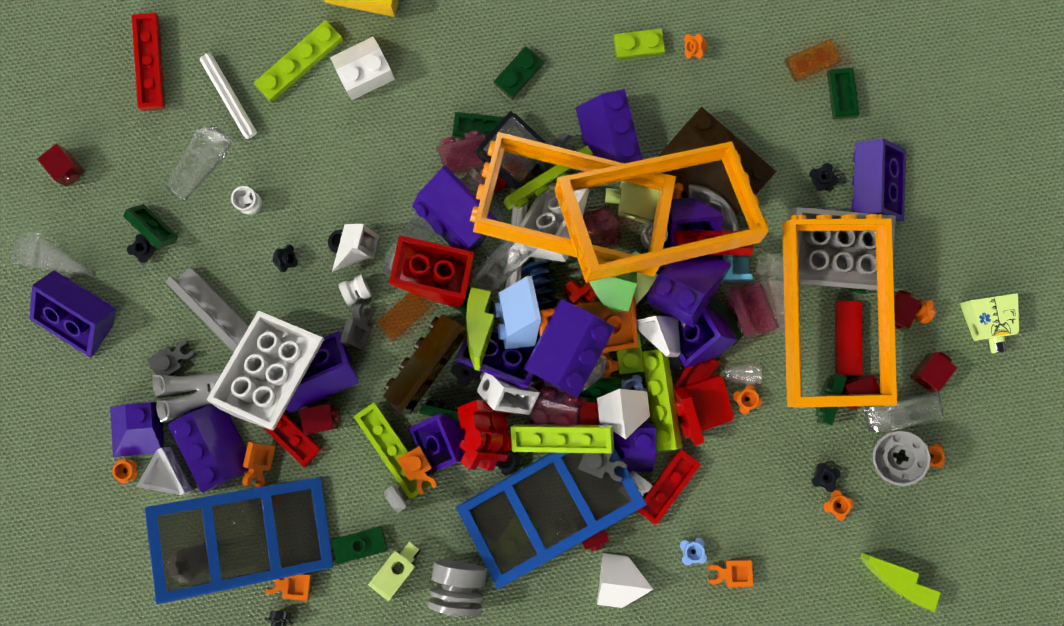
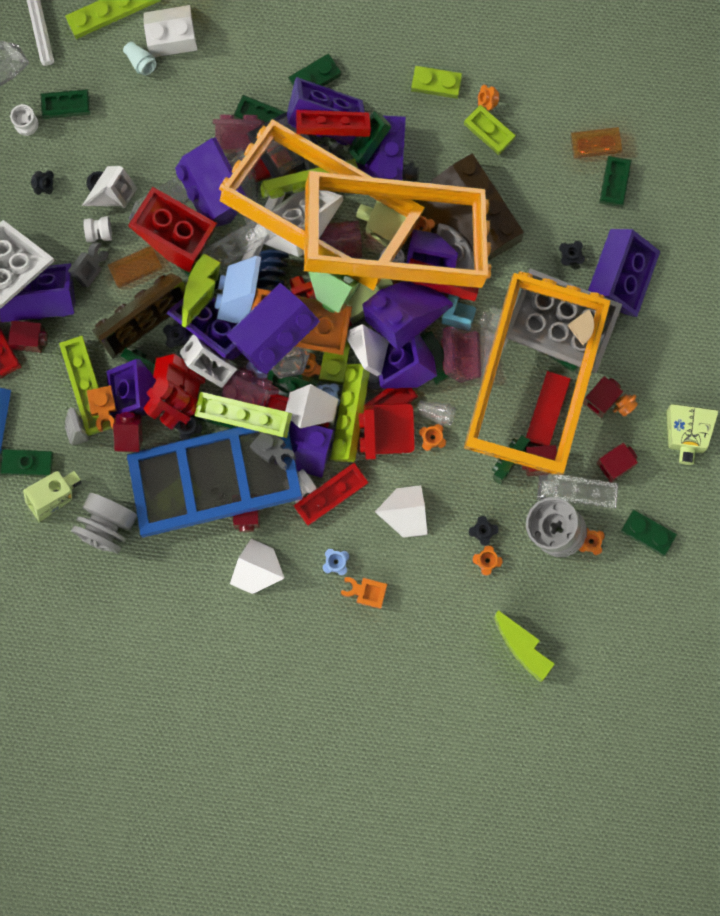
camera: 20 degrees right, 5 degrees down
(282, 172) = (65, 104): none -> dark green plate
(342, 105) = (142, 61): none -> light aqua cone
(450, 487) = (127, 432): none -> dark red brick
(544, 106) = (319, 98): none -> dark purple slope
(559, 117) = (333, 123): none -> red plate
(596, 120) = (364, 147): none -> dark green plate
(645, 143) = (410, 172): none -> black plate
(706, 77) = (489, 130): none -> lime plate
(745, 480) = (405, 511): none -> white slope
(874, 253) = (583, 327): none -> tan tile
(982, 430) = (648, 533): none -> dark green plate

